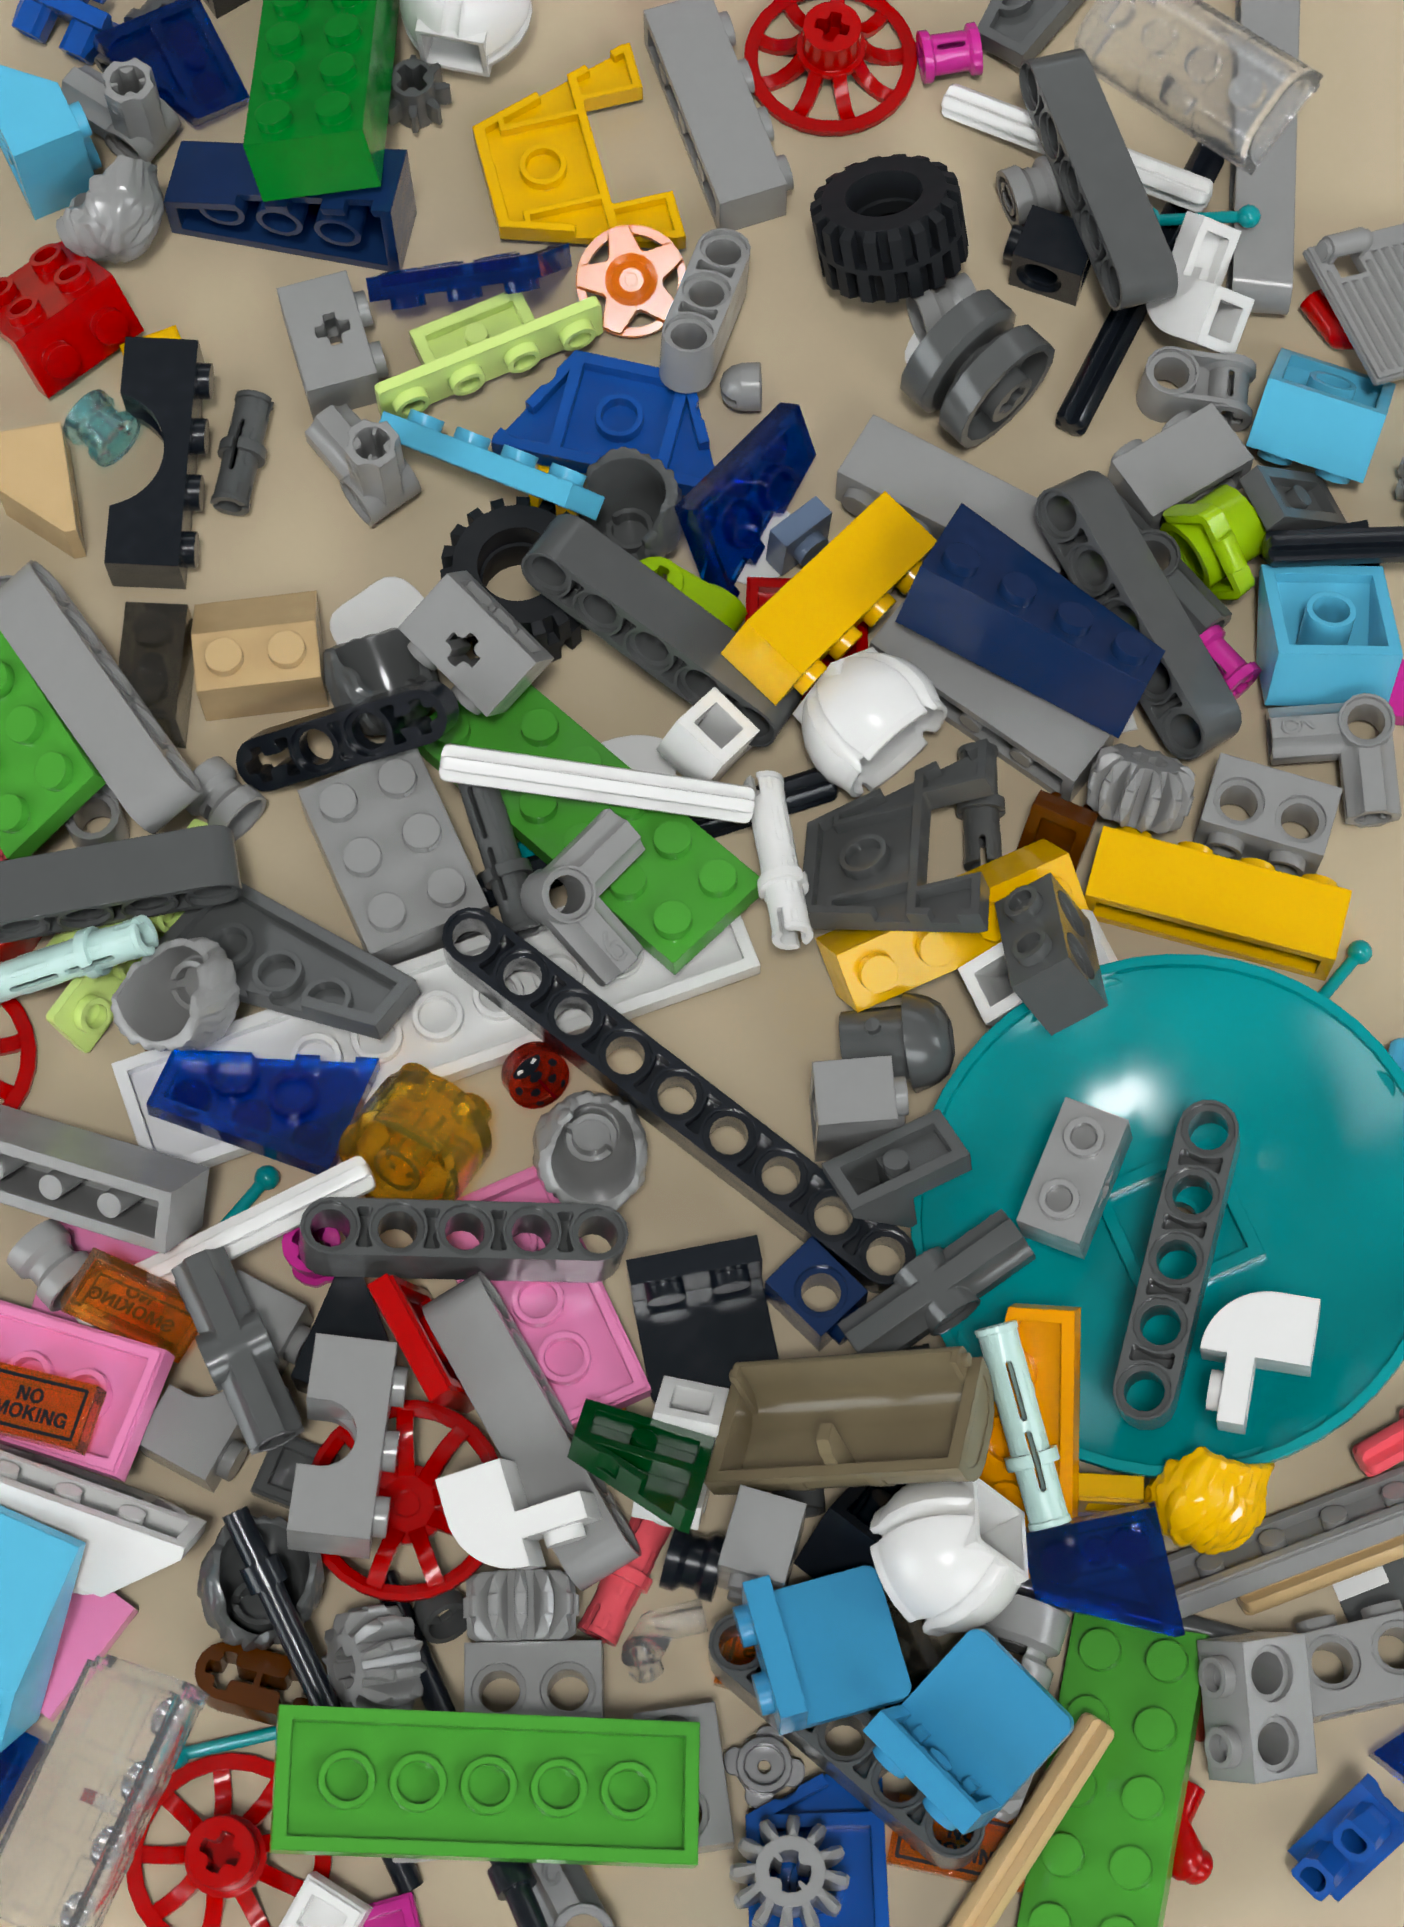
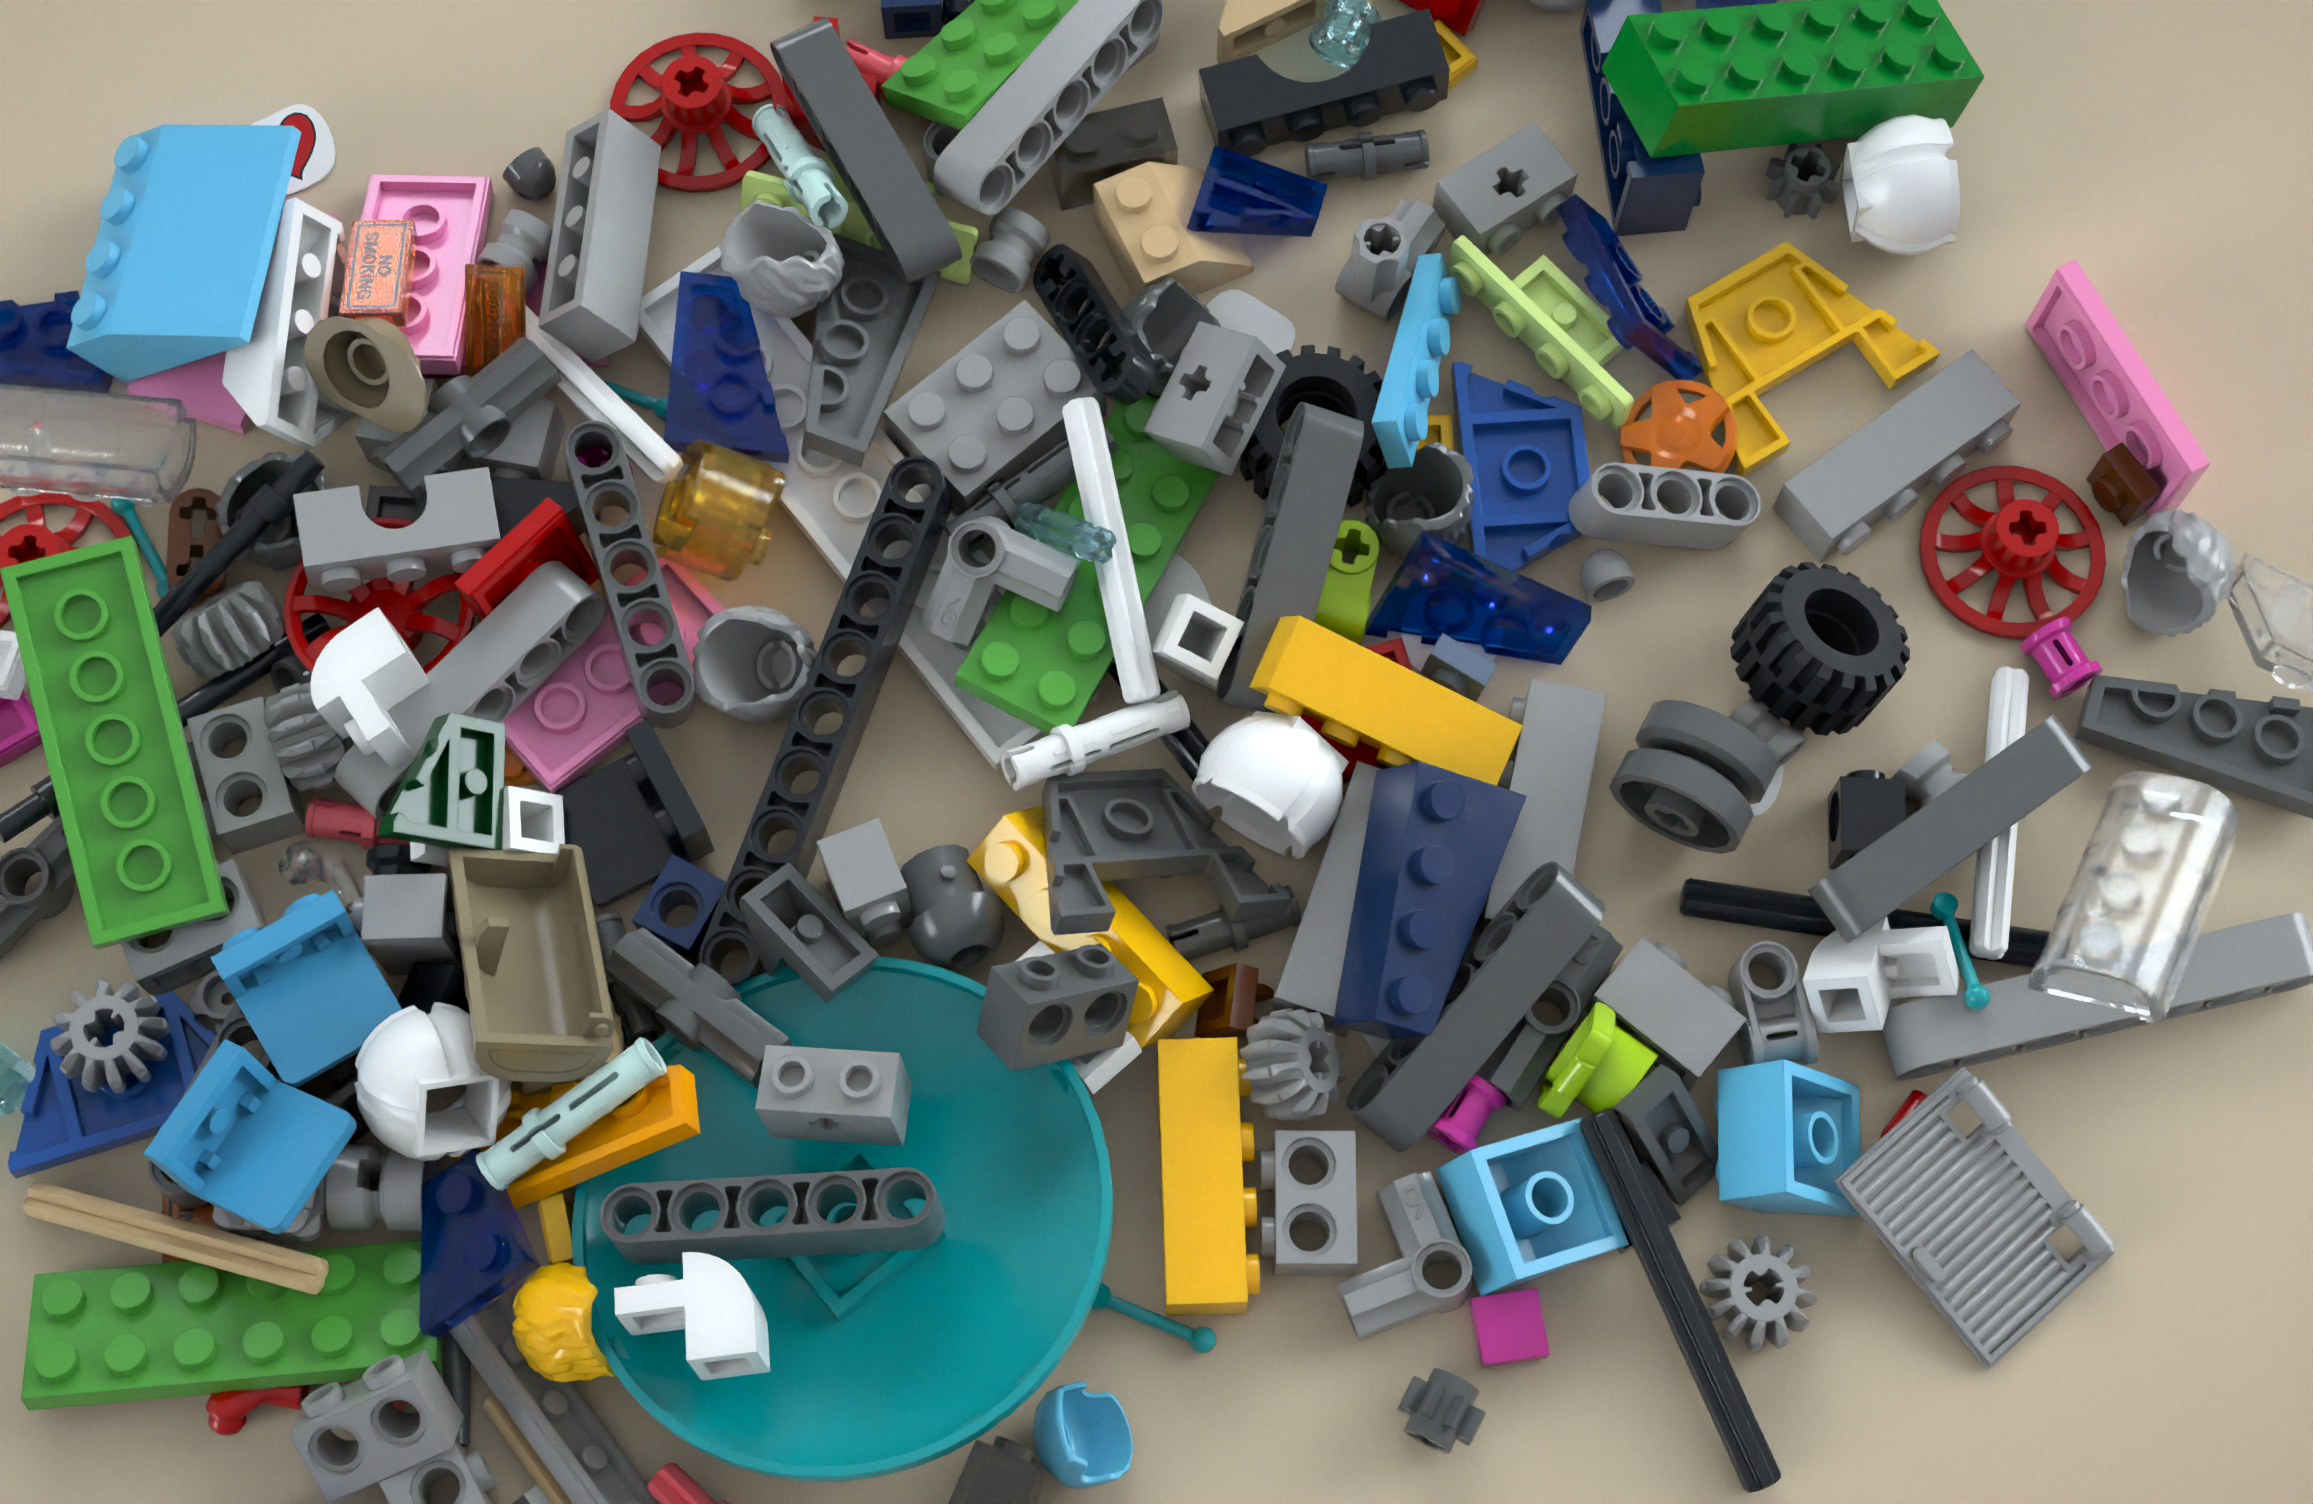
camera: 70 degrees right, 0 degrees up
(165, 1424) = (368, 370): none -> dark tan piece
(254, 561) = (1255, 198): none -> clear blue wing
(535, 1075) = (818, 596): clear red tile -> none
(569, 816) = (1065, 532): none -> clear light blue axle

